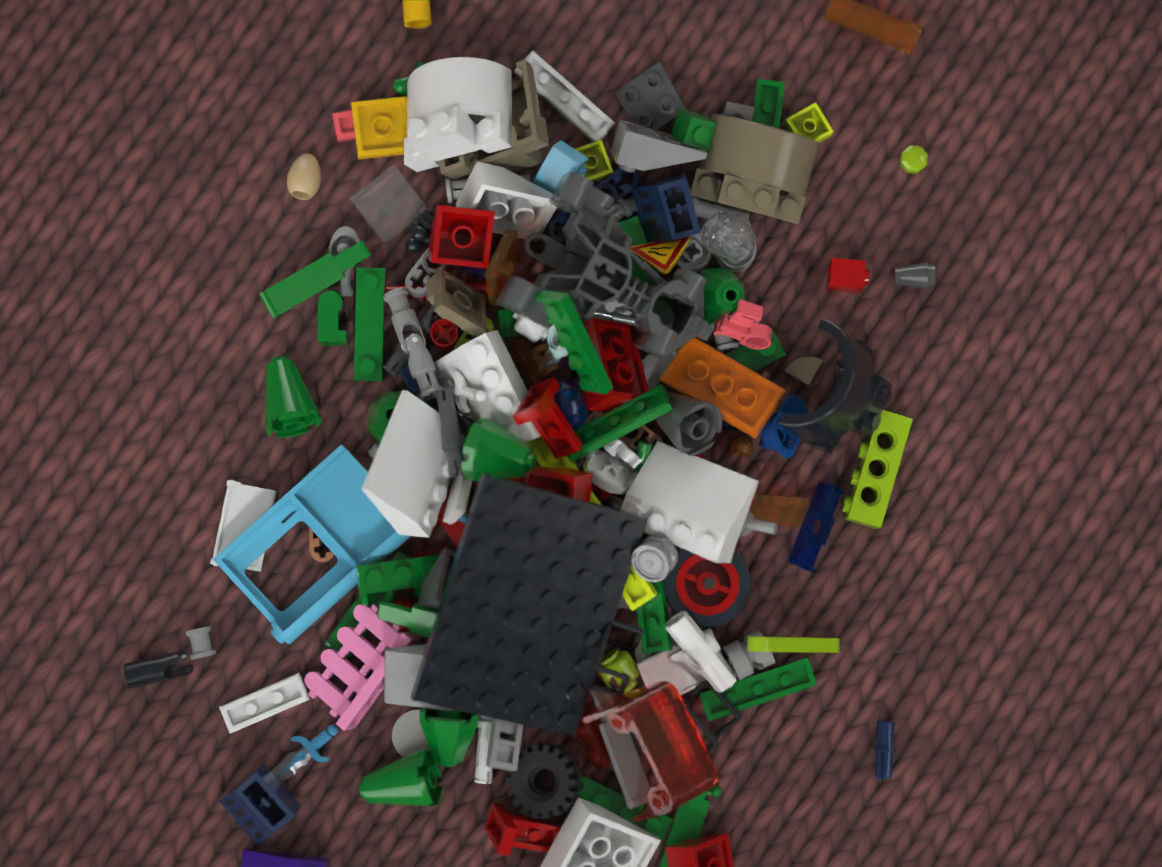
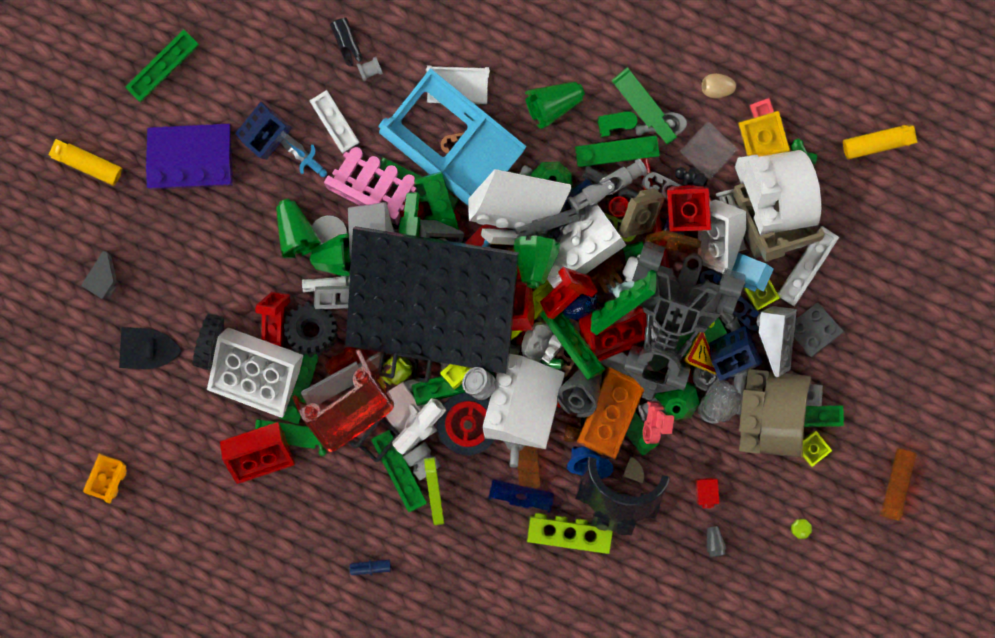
camera: 85 degrees right, 5 degrees up
(693, 129) = (796, 364): green brick -> none

